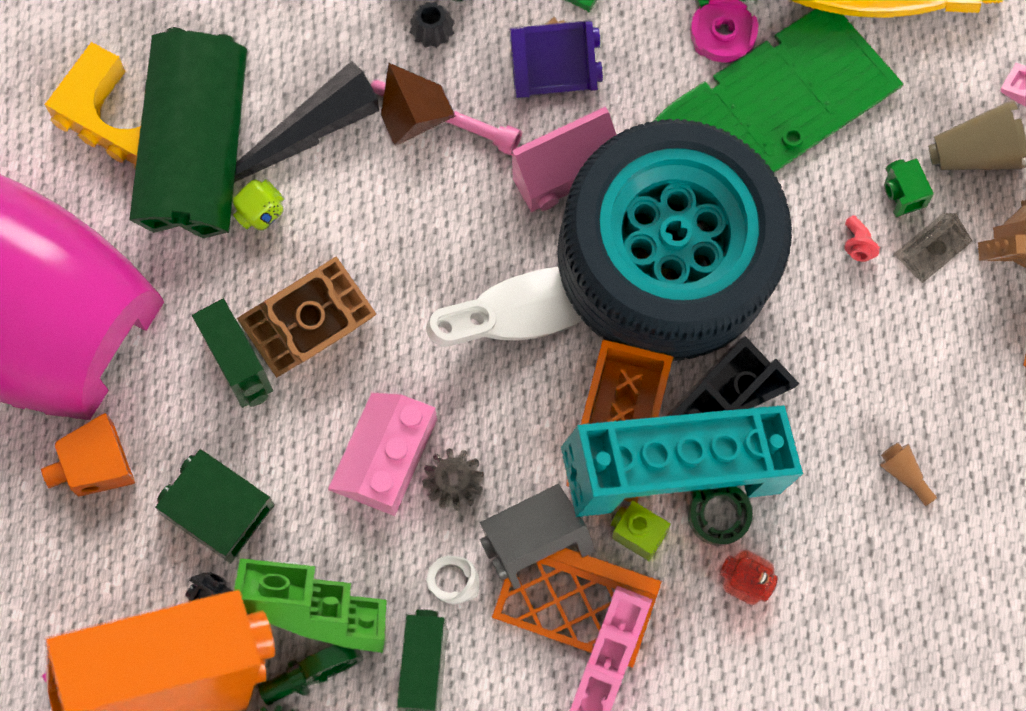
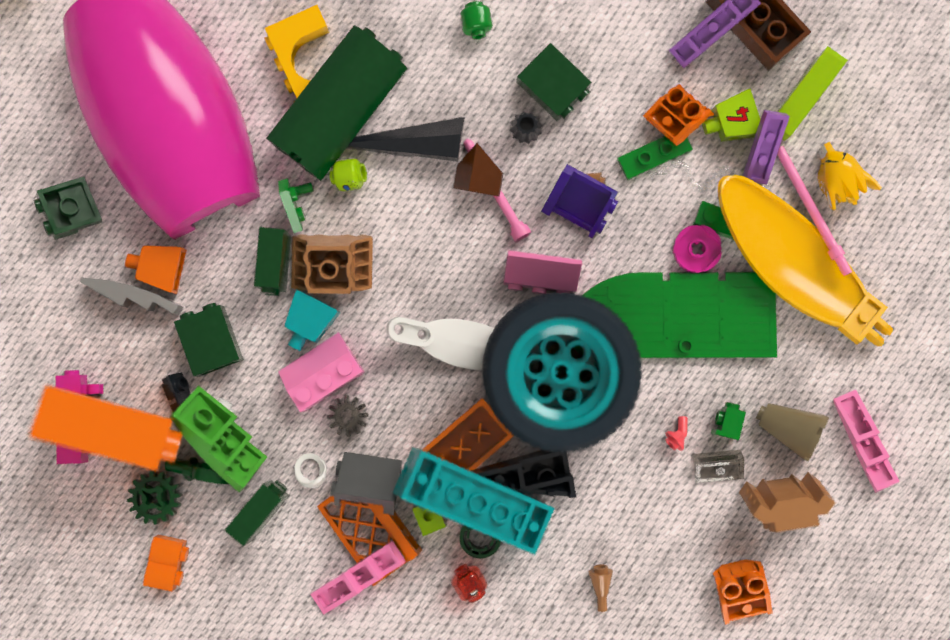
camera: 35 degrees right, 15 degrees up
(65, 520) = (124, 294): none -> light grey slope
(203, 270) = (289, 196): none -> green plate
(324, 398) = (308, 319): none -> teal torso

